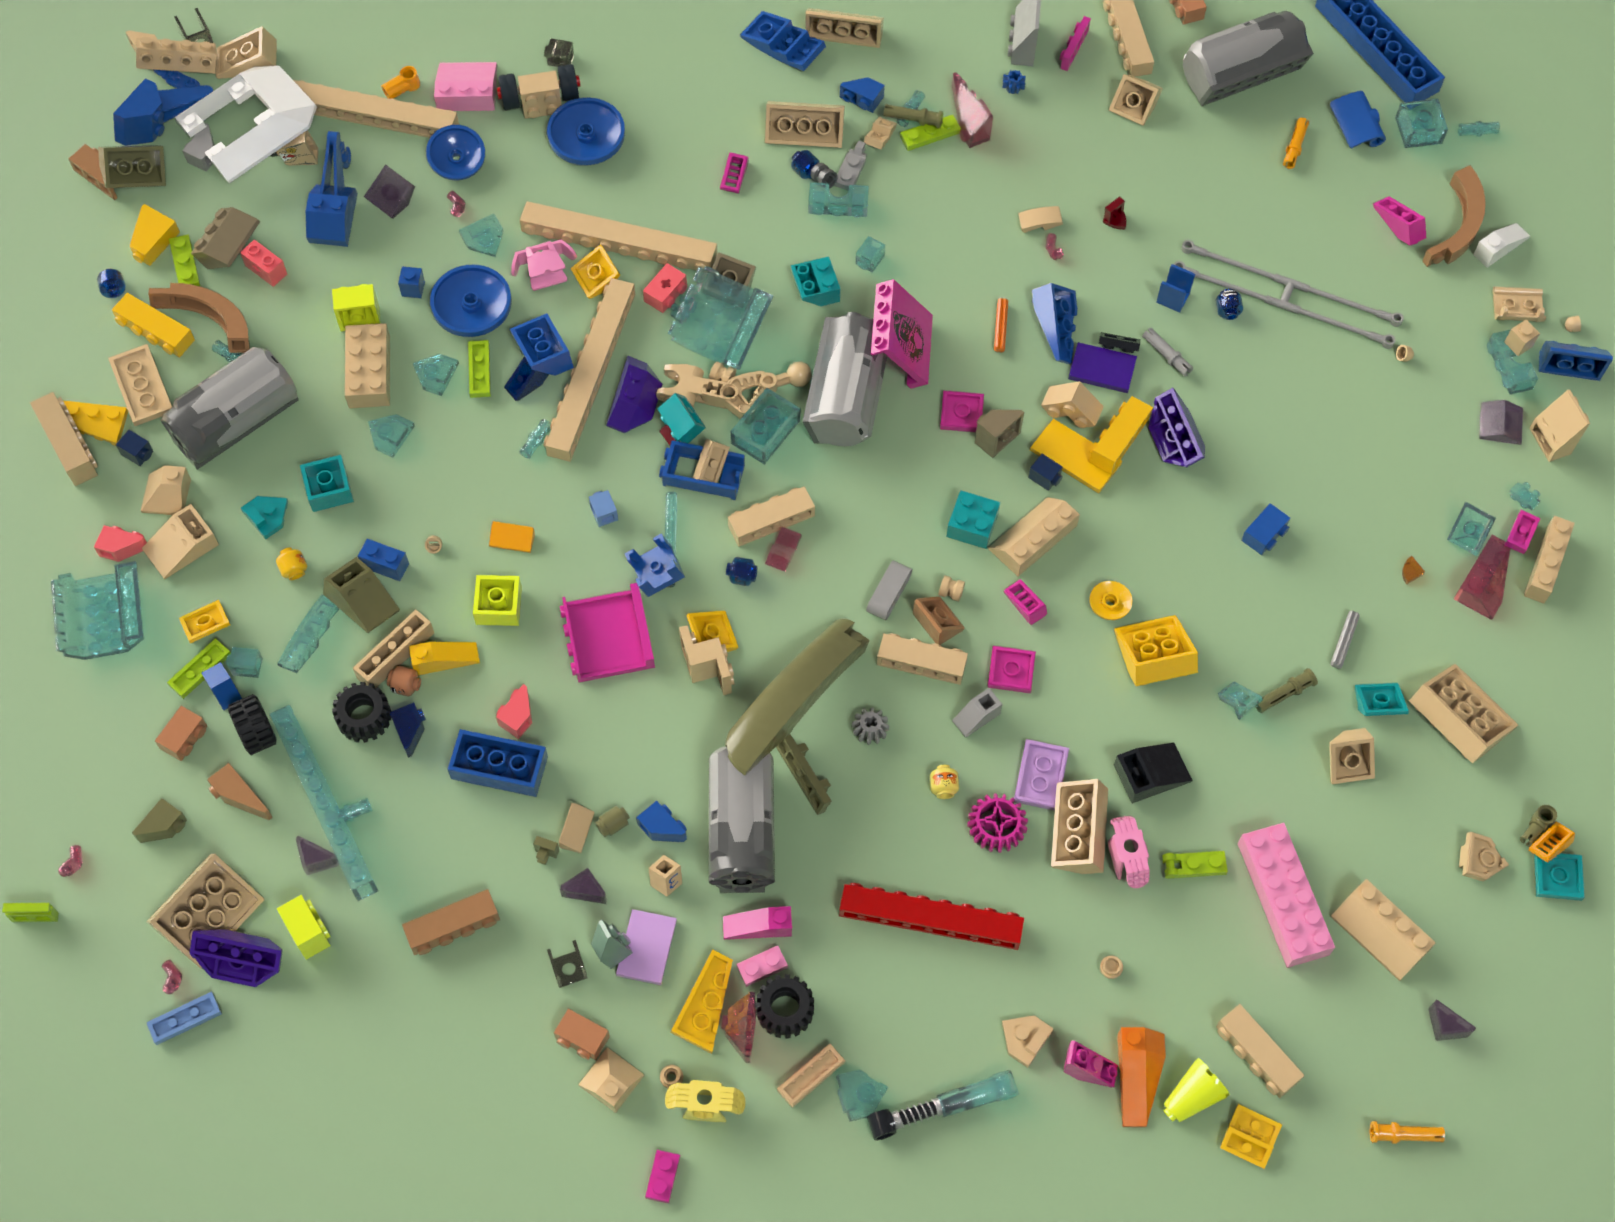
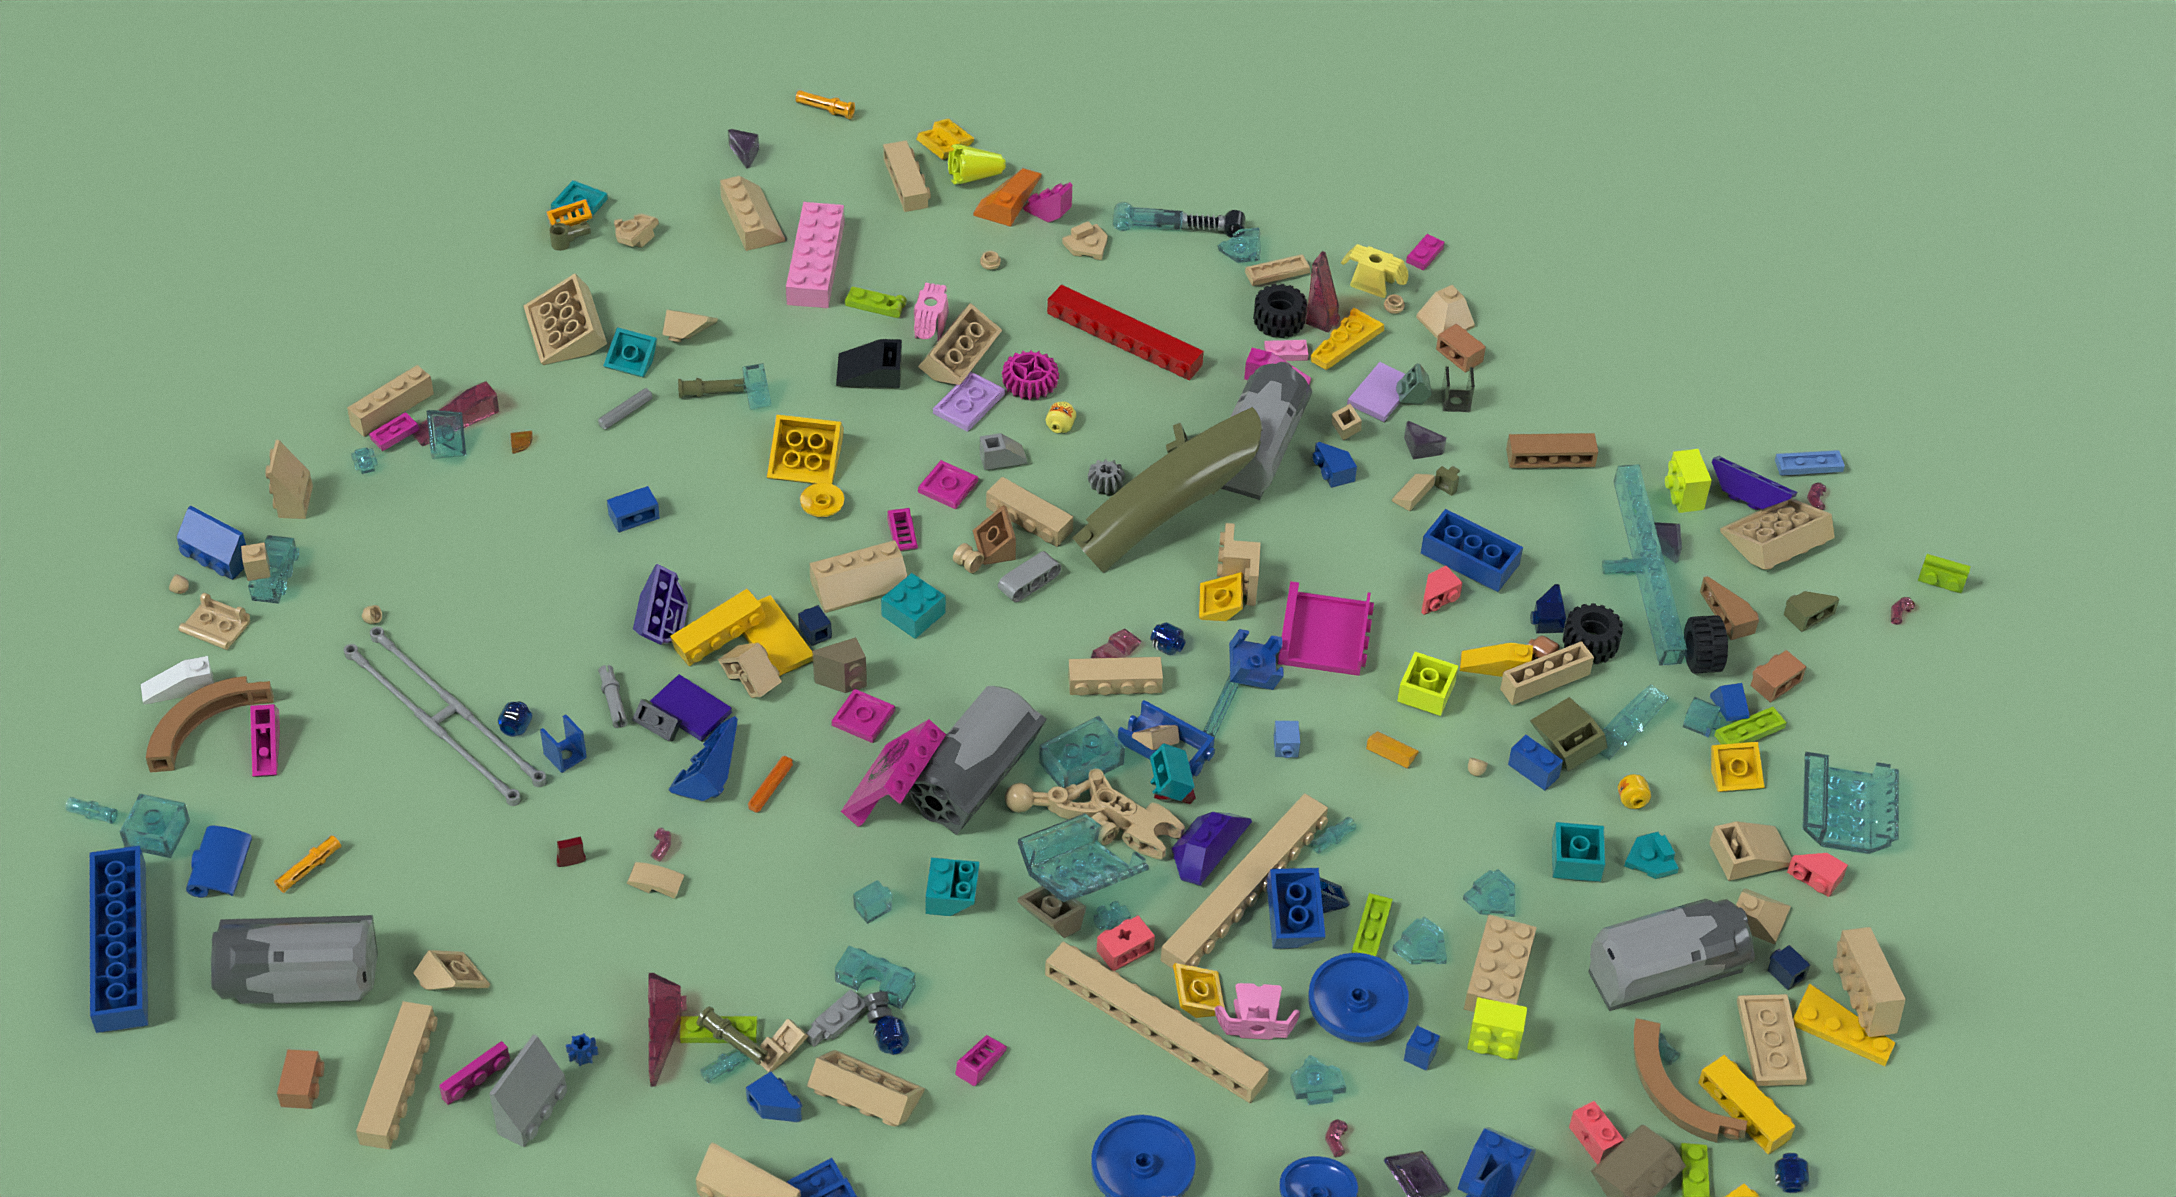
camera: 160 degrees left, 15 degrees down
(612, 821) = (1378, 481): olive brick -> none
(1501, 422) = (330, 528): slope -> none

